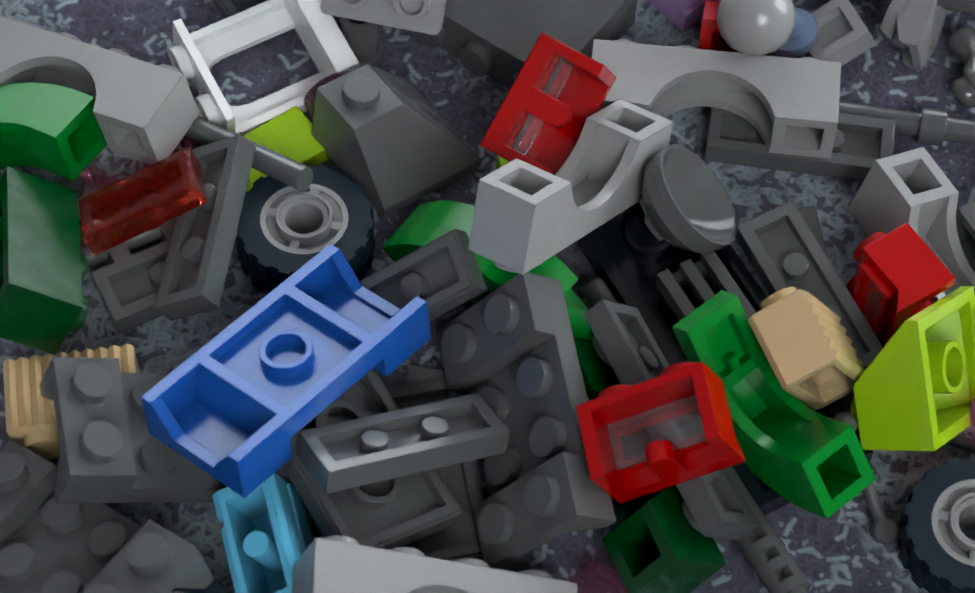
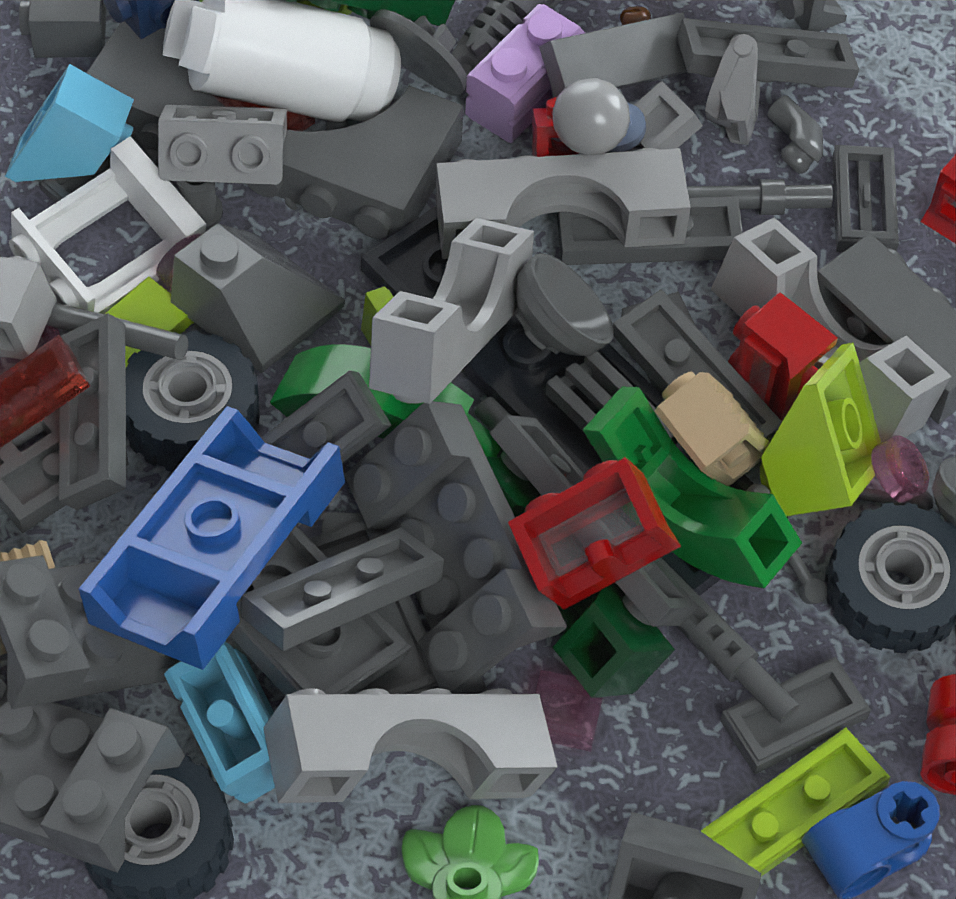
camera: 15 degrees left, 0 degrees up
(548, 105) = (412, 235): red window -> none

